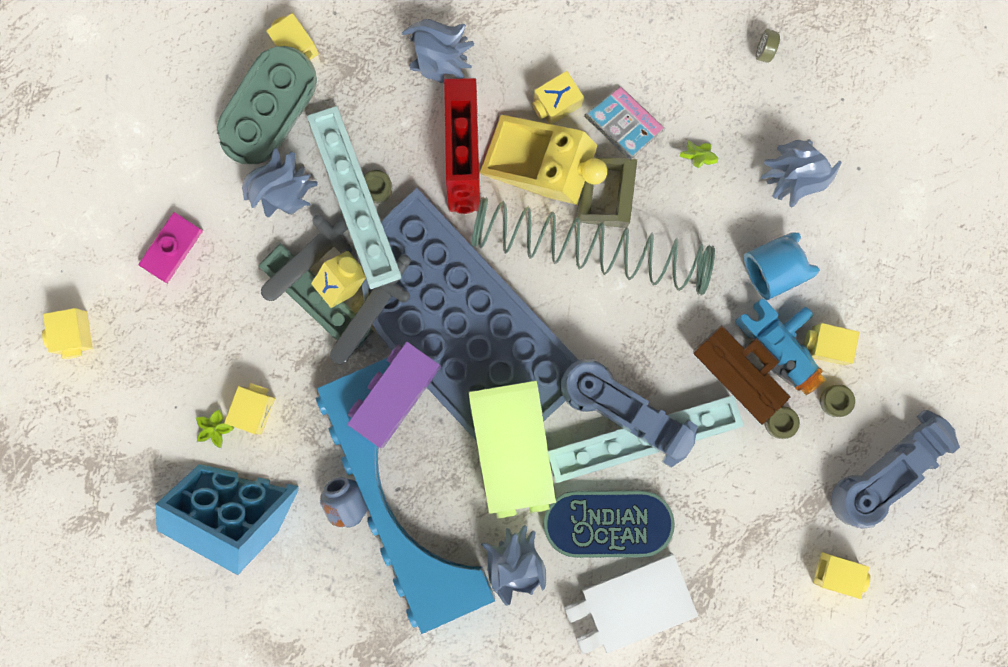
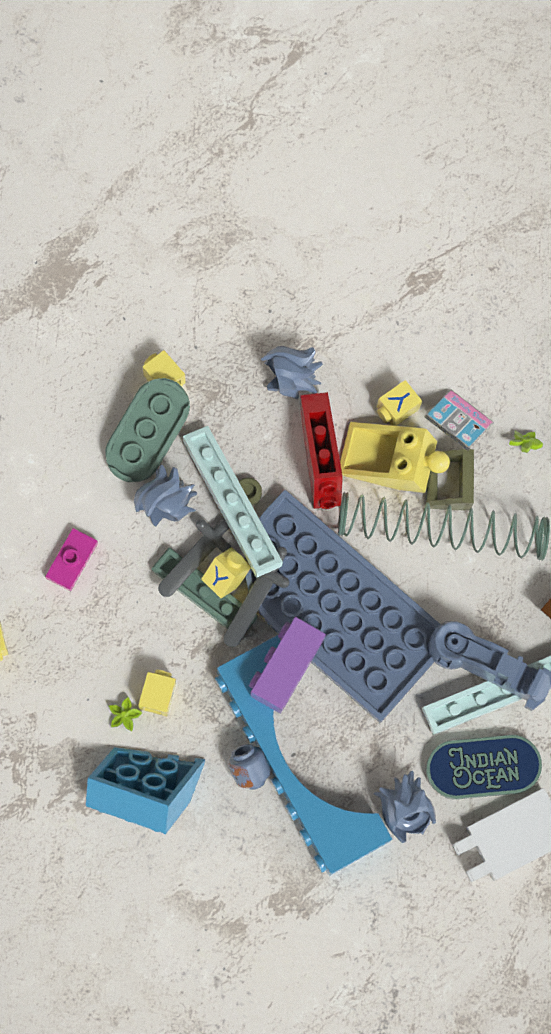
camera: 10 degrees left, 10 degrees down
(512, 448) = (394, 701): yellowish green slope -> none

